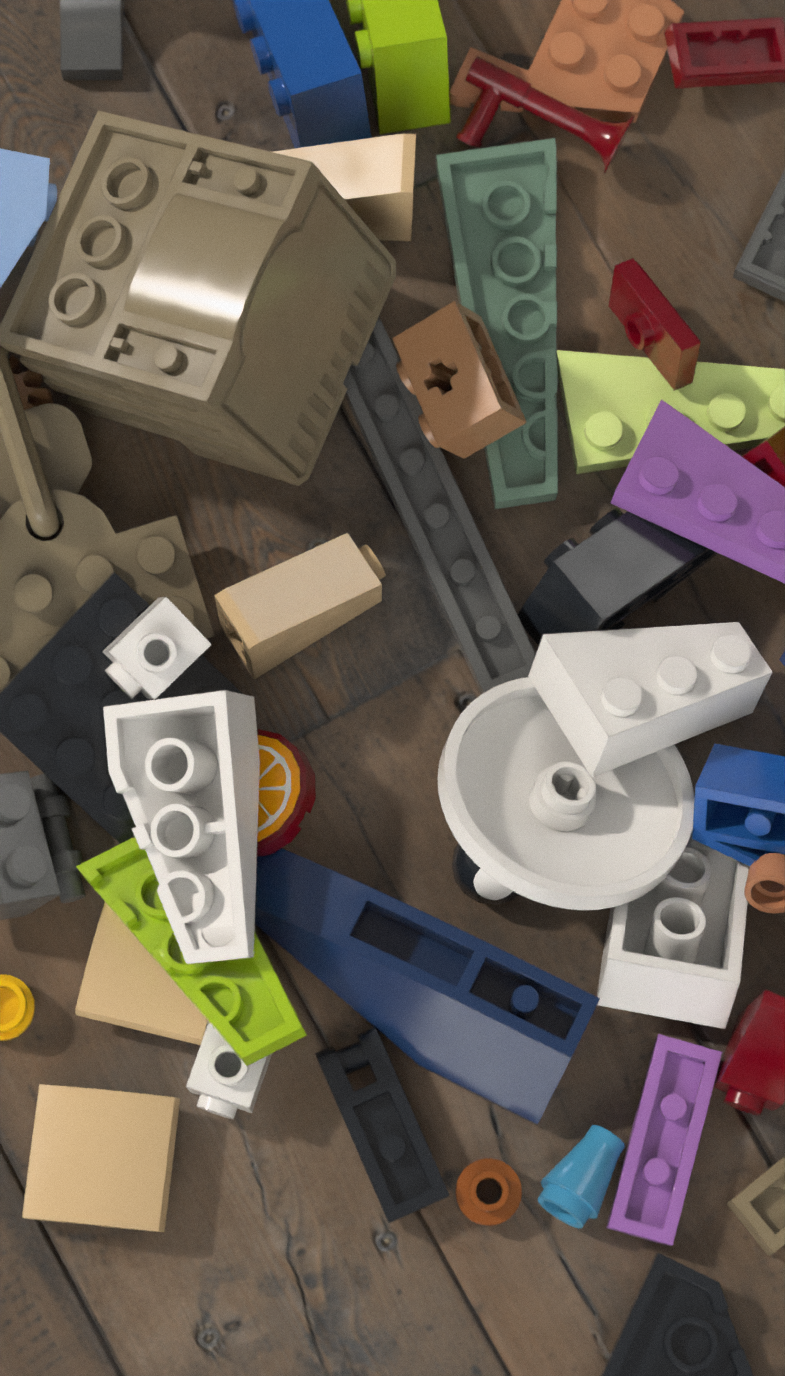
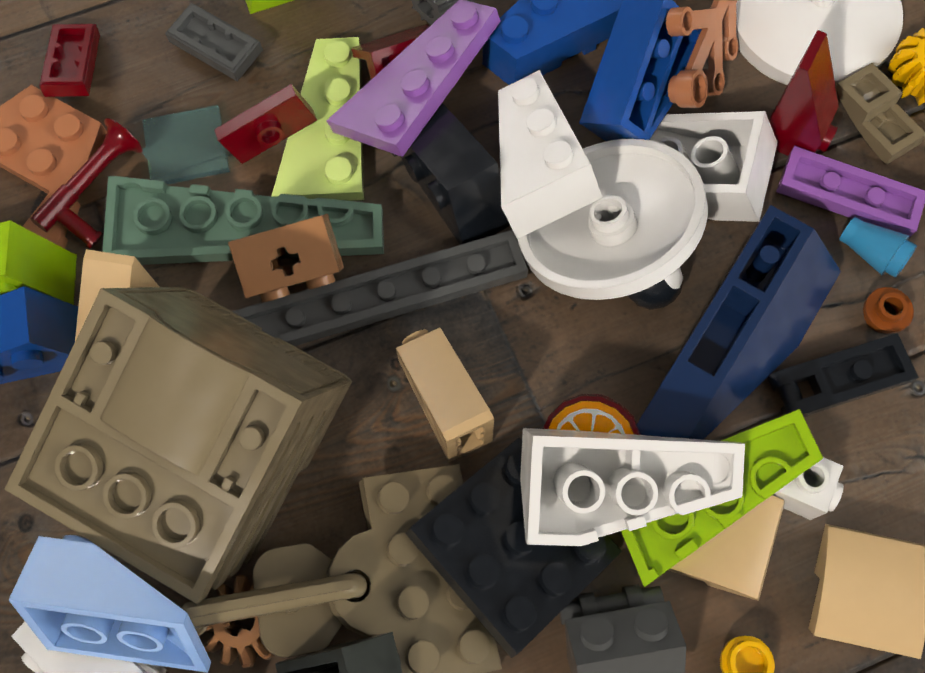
camera: 80 degrees left, 5 degrees down
(154, 650) = (483, 497): white brick -> none
(624, 221) = (184, 145): none -> clear light blue piece

